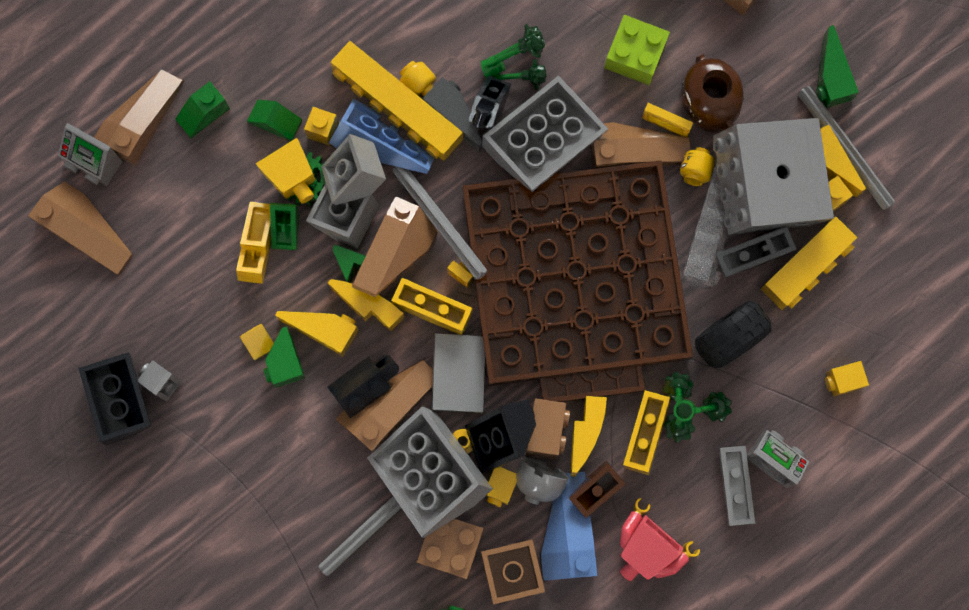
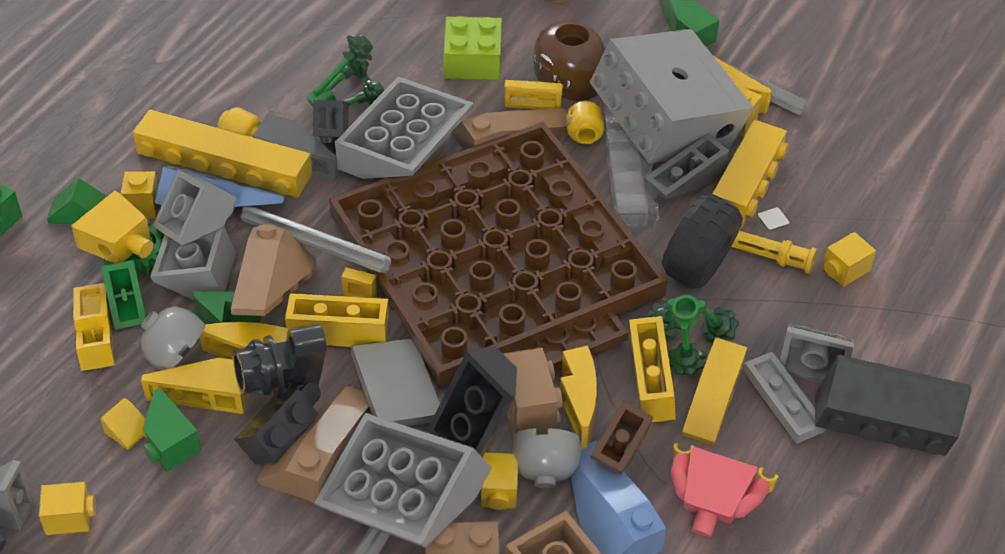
camera: 20 degrees left, 30 degrees down
(200, 401) = (66, 508): none -> yellow brick
(305, 284) = (169, 335): none -> light grey cylinder
(361, 343) = (272, 365): none -> black beam
(686, 465) = (714, 391): none -> yellow slope
(800, 353) = (783, 252): none -> yellow pin
(804, 535) = (891, 405): none -> pearl dark grey slope
(810, 311) = (773, 218): none -> white sticker

